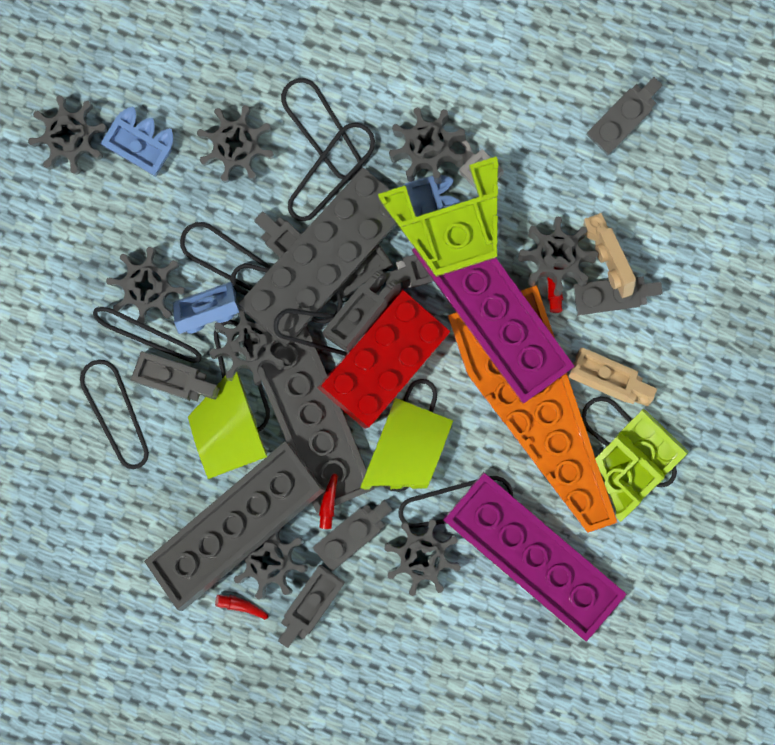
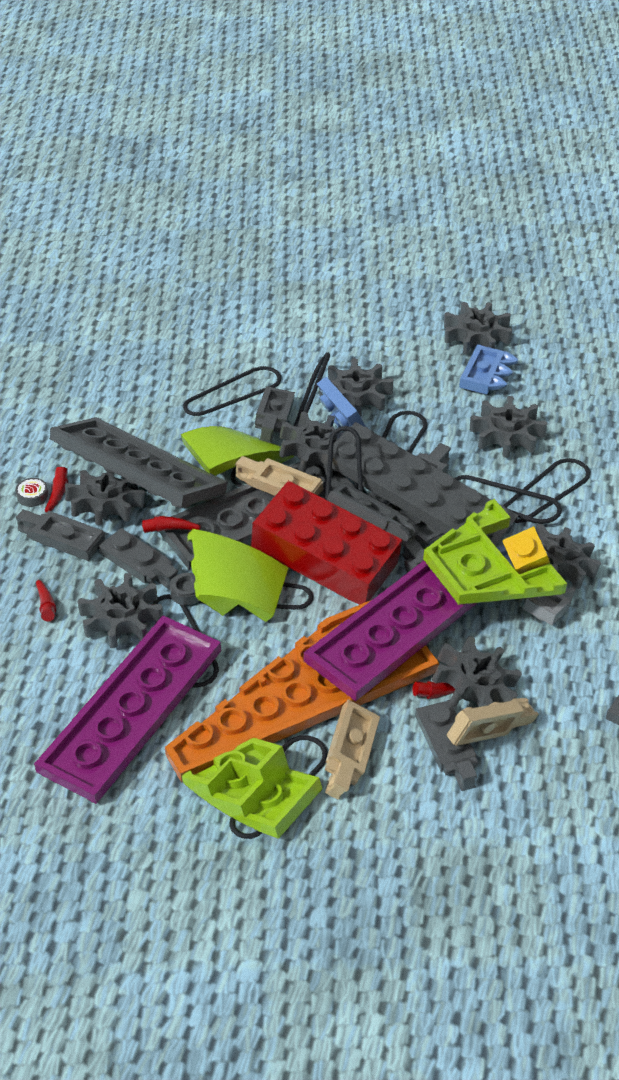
camera: 80 degrees right, 45 degrees down
(240, 631) = (31, 492): none -> tile
(293, 389) = (272, 476): none -> tan hinge
(391, 622) = (47, 603): none -> red helmet
(401, 498) = (182, 589): none -> dark grey tile
(453, 181) = (526, 550): none -> yellow brick

